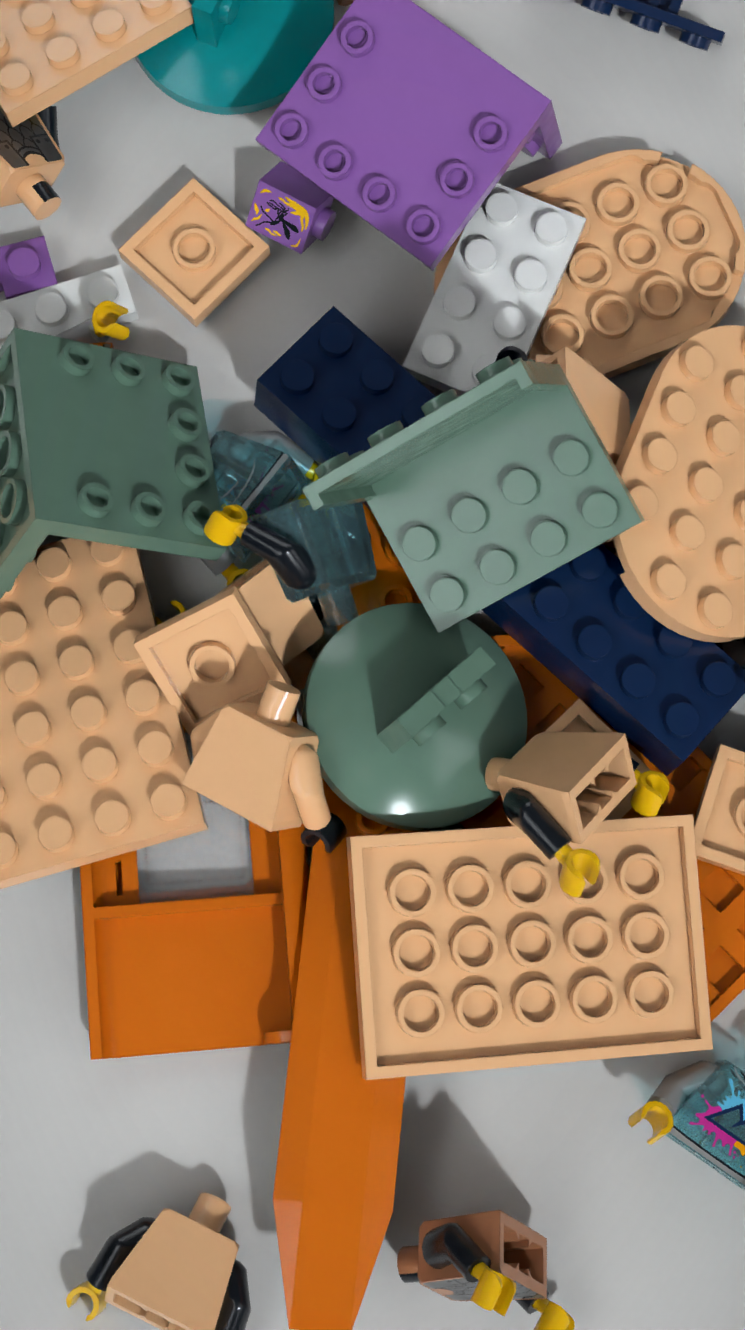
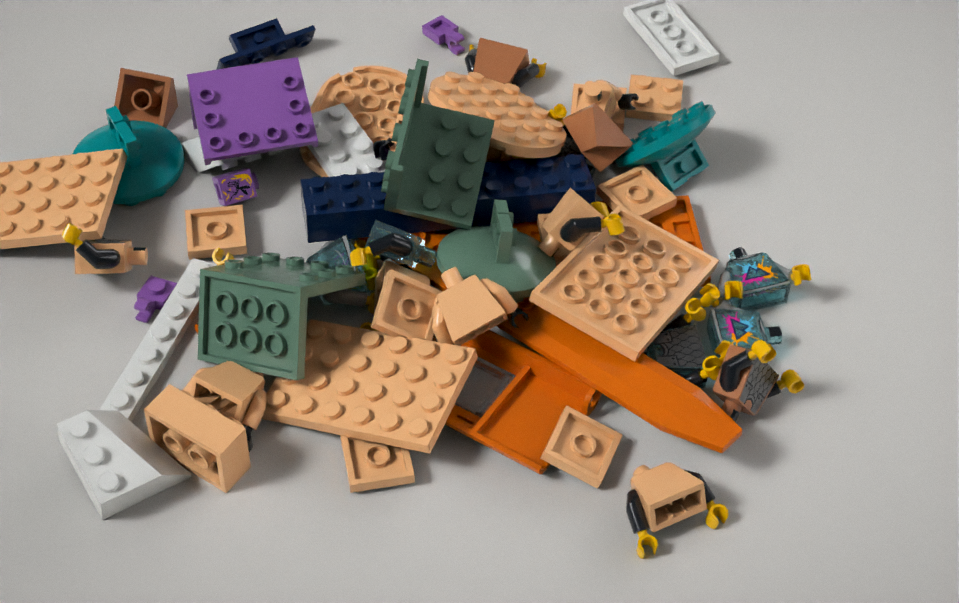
camera: 55 degrees left, 30 degrees down
(186, 1087) = (581, 446): none -> light nougat plate
(471, 1116) = (681, 349): none -> torso
(588, 1175) = (734, 325): none -> torso

